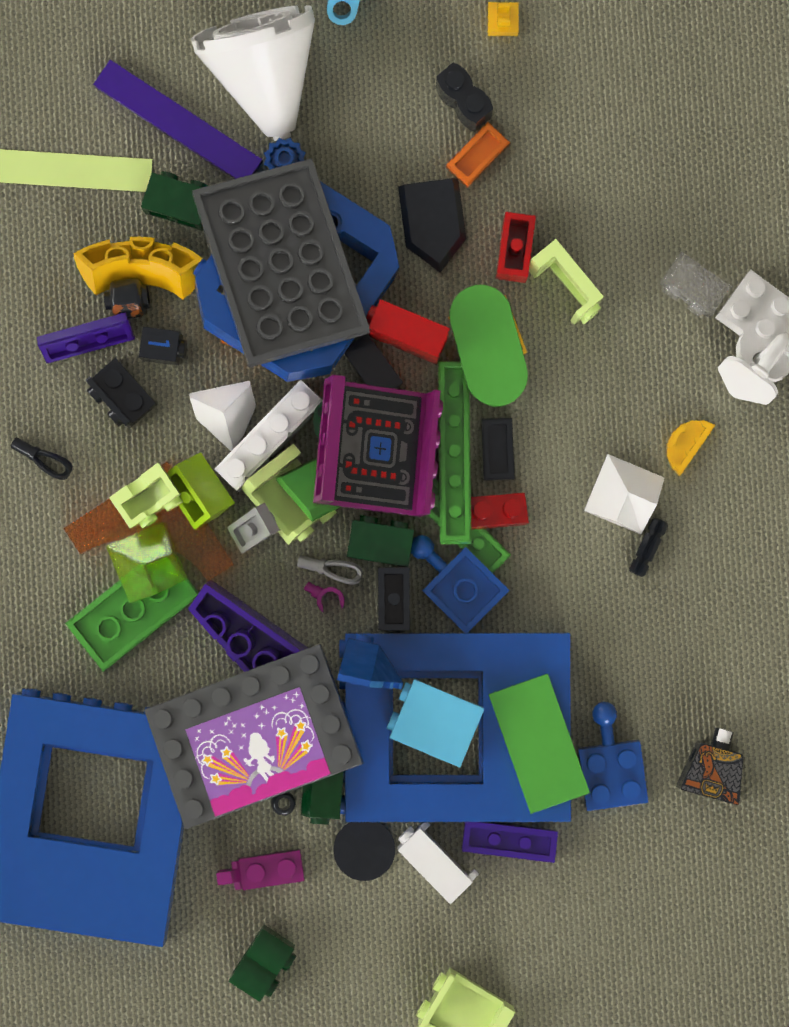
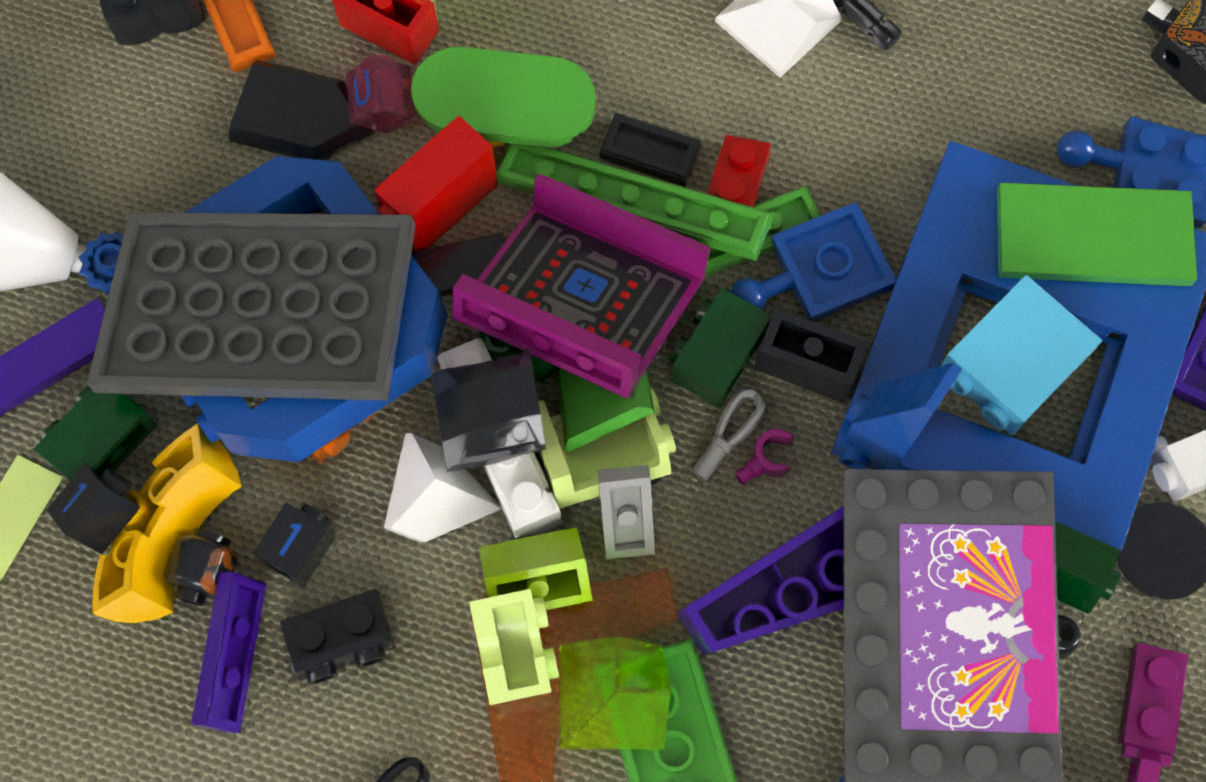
camera: 70 degrees left, 15 degrees down
(132, 224) = (94, 507): none -> black brick
(272, 425) = (488, 412): none -> black slope
(461, 267) = (380, 94): none -> clear pink brick

